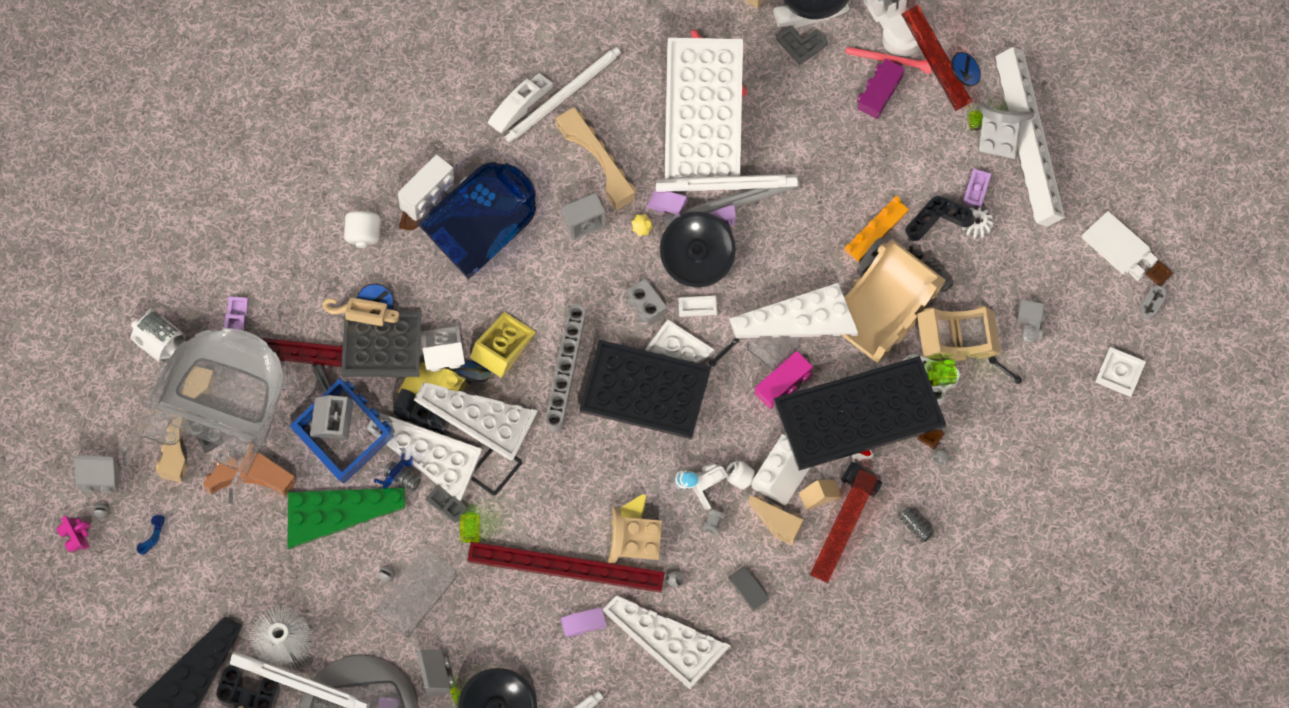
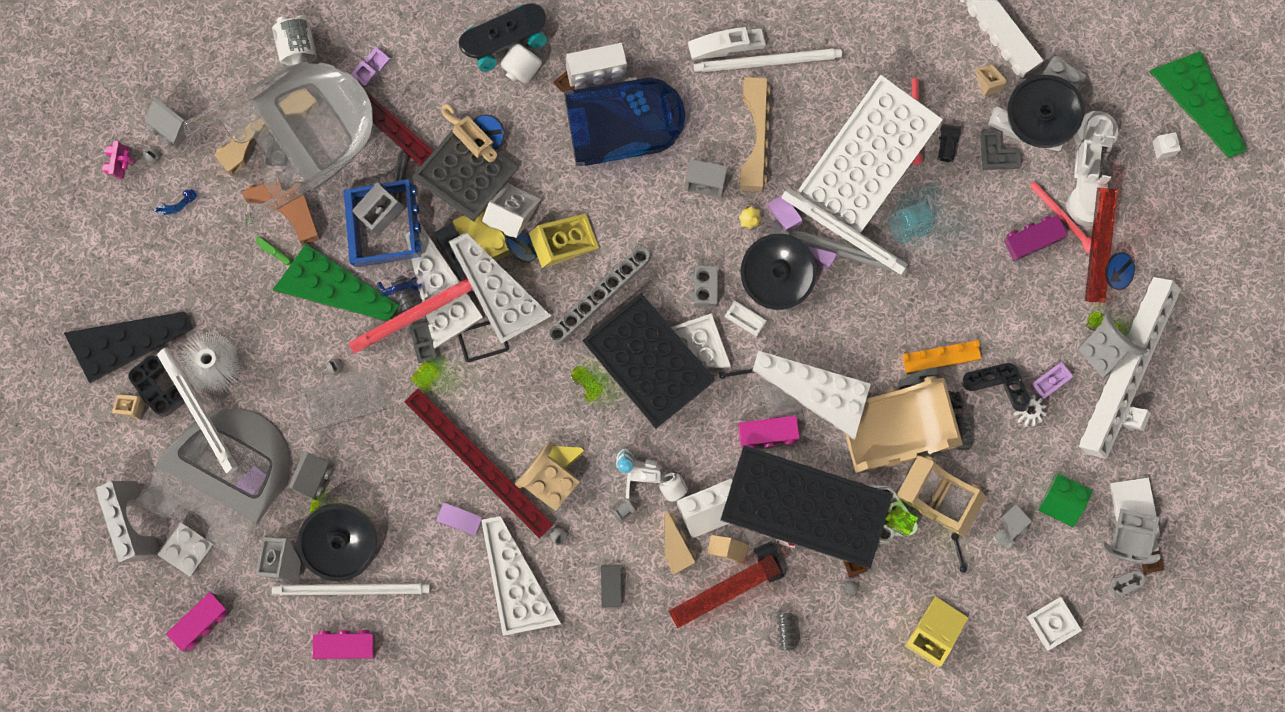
camera: 30 degrees right, 10 degrees up
(260, 517) = (266, 246): none -> bright green piece
(331, 211) = (503, 32): none -> black piece
(421, 487) = (410, 316): none -> coral piece
(607, 442) = (582, 377): none -> clear neon green leg
(755, 59) = (948, 140): none -> black piece
(774, 140) = (911, 222): none -> clear light blue brick
(1035, 442) = (936, 632): none -> light yellow slope
(1057, 271) = (1065, 500): none -> green slope
(1064, 171) = (1136, 419): none -> white bracket
(1132, 261) = (1134, 538): none -> light grey piece

